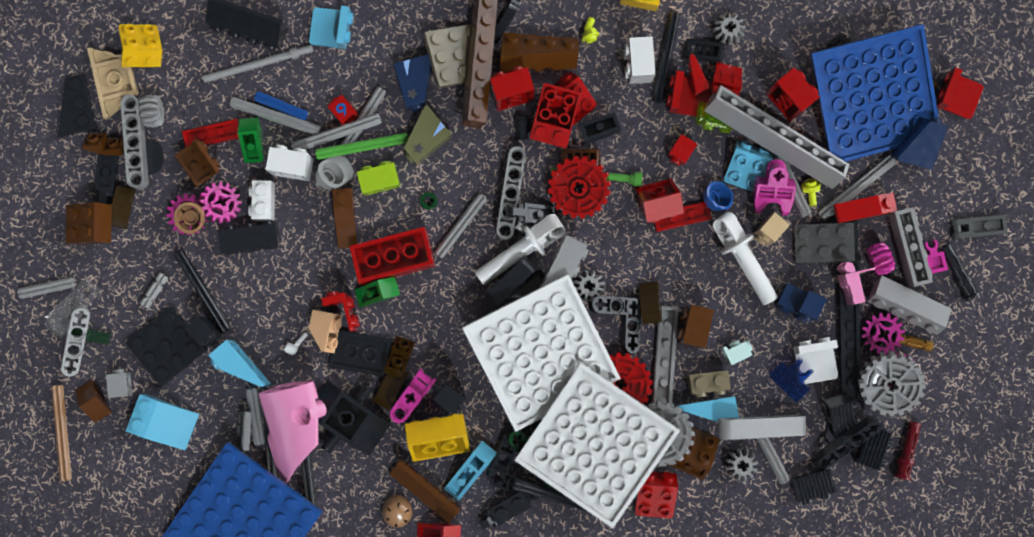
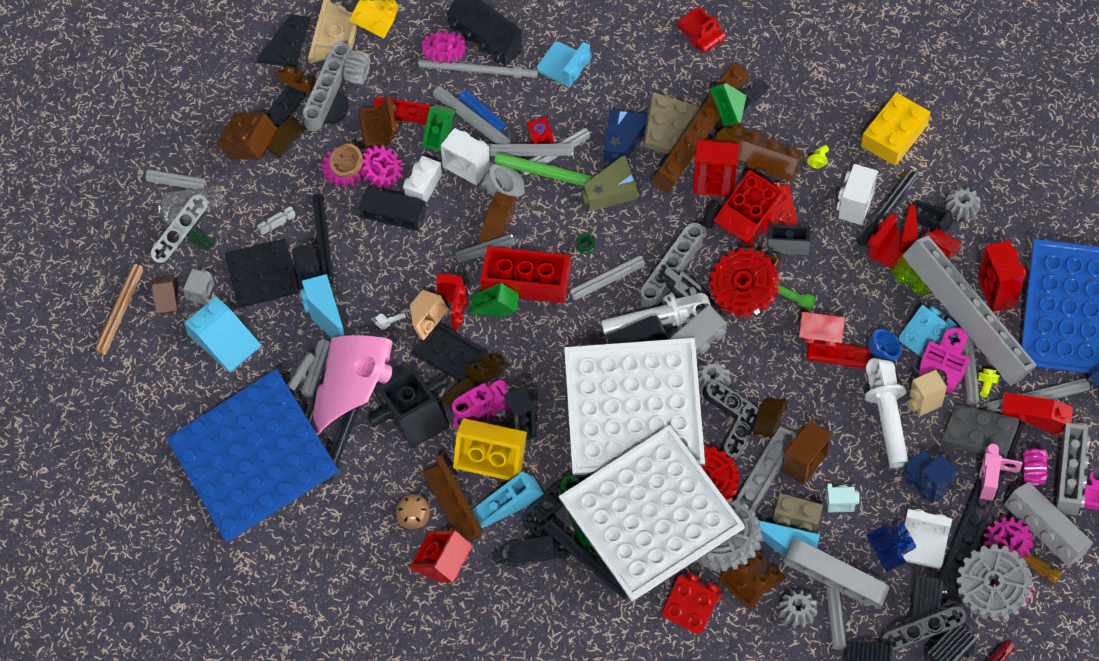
camera: 30 degrees right, 25 degrees down
(218, 56) = (443, 47): none -> dark pink gear
(343, 246) = (480, 249): none -> dark grey axle
(378, 178) = (545, 204): lime brick -> none
(499, 23) = (729, 103): none -> green slope
(682, 150) = (866, 292): red brick -> none

